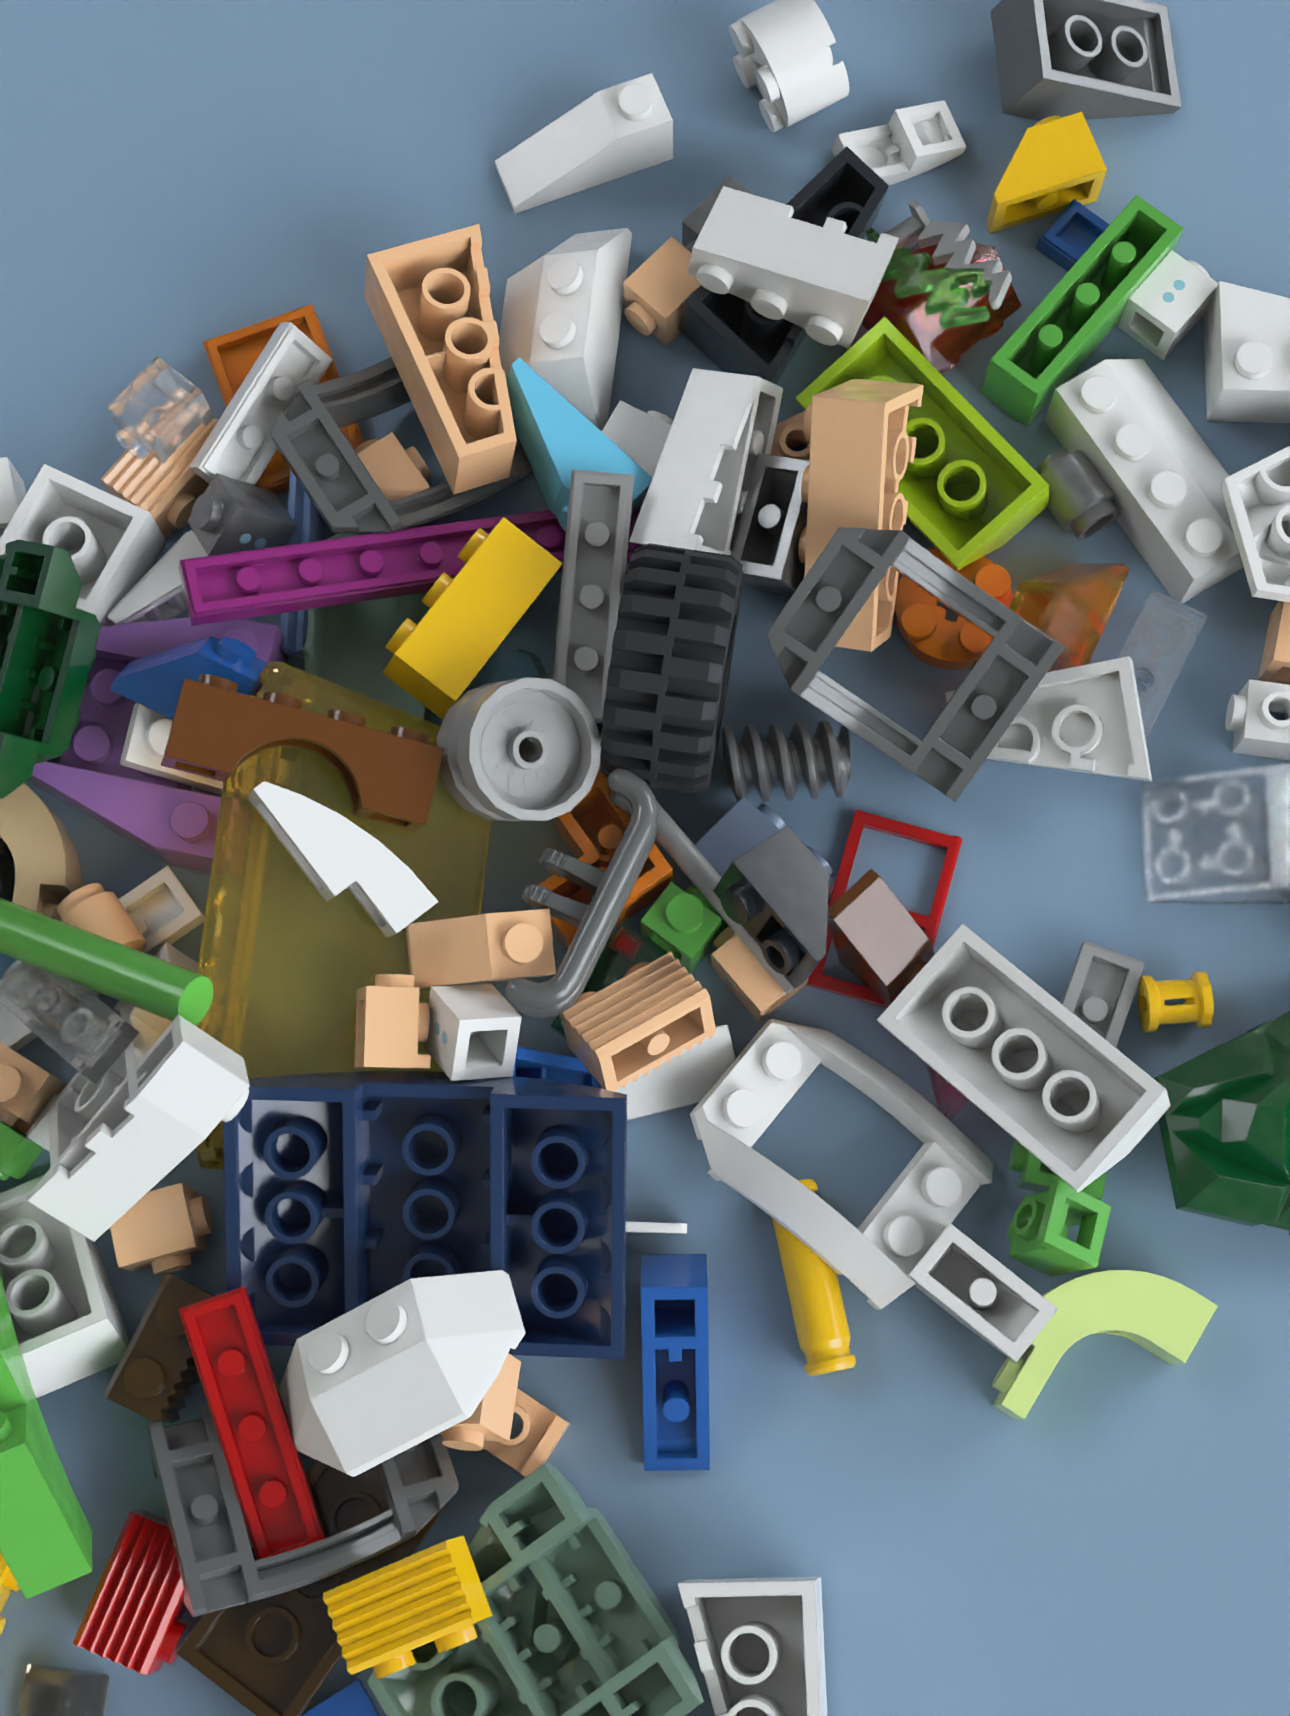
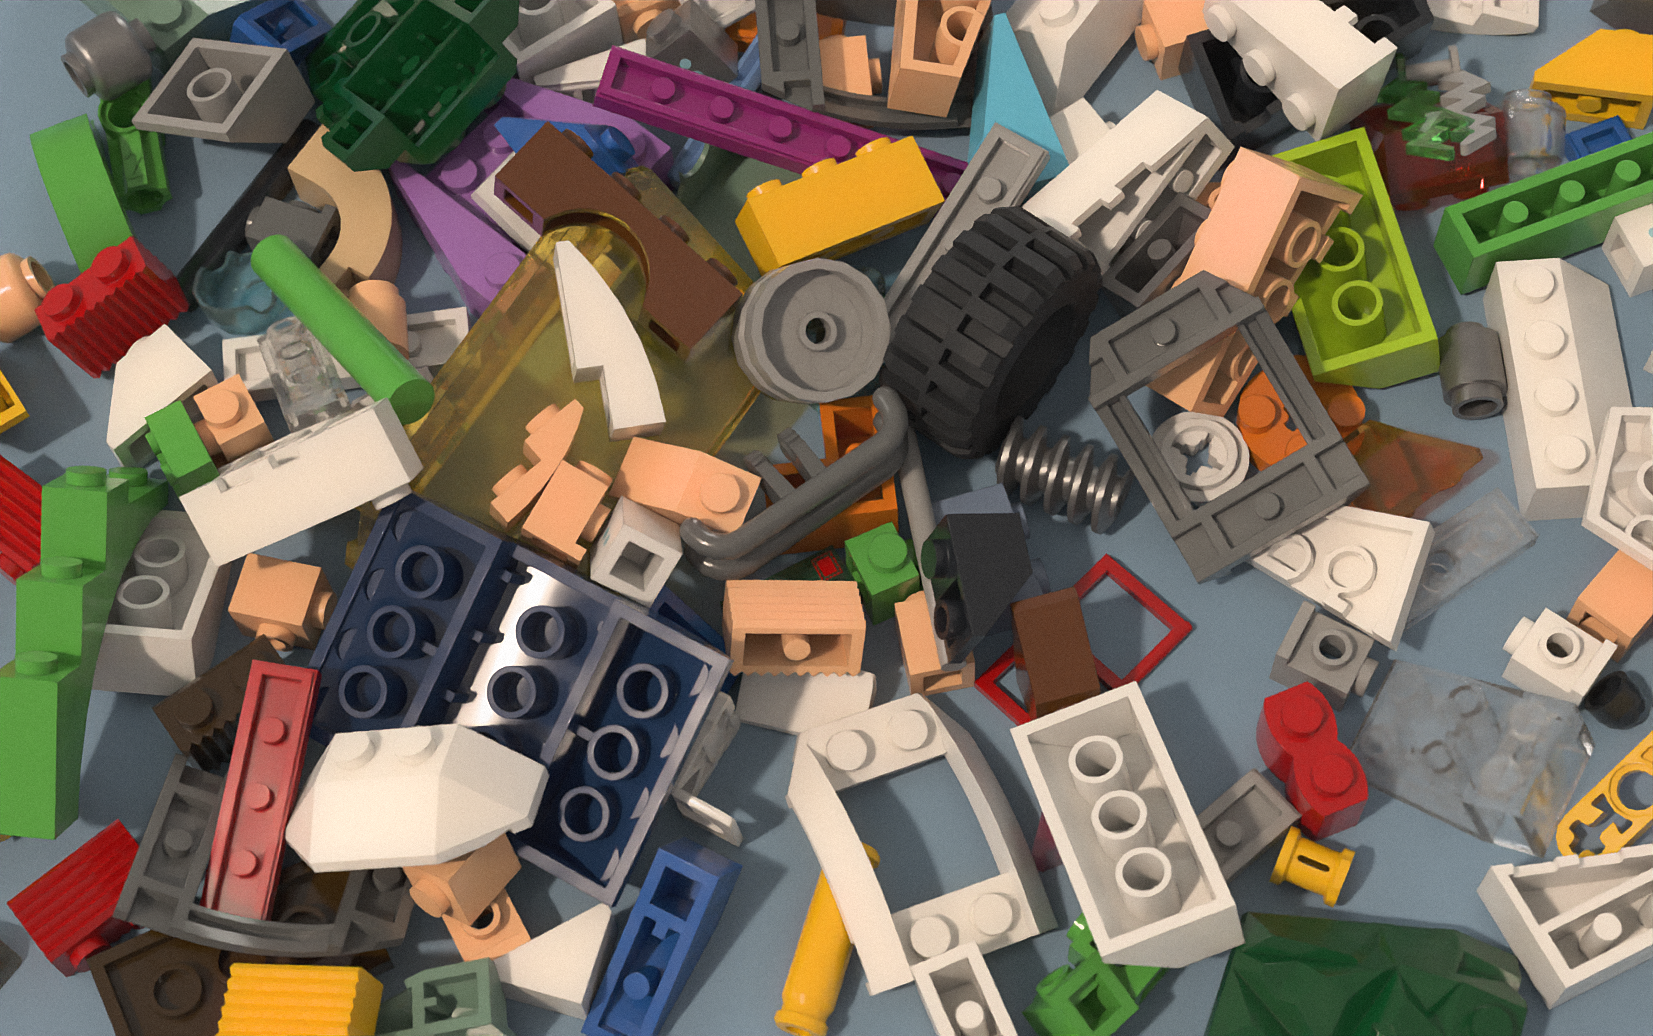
camera: 30 degrees right, 10 degrees down
(342, 976) = (549, 443): none -> light nougat slope
(601, 1426) = (563, 965): none -> white slope
(909, 668) = (1227, 453): none -> white gear
(1019, 246) = (1533, 132): none -> clear head
(1074, 828) = (1301, 659): none -> light grey brick
(1117, 903) = (1319, 772): none -> red brick

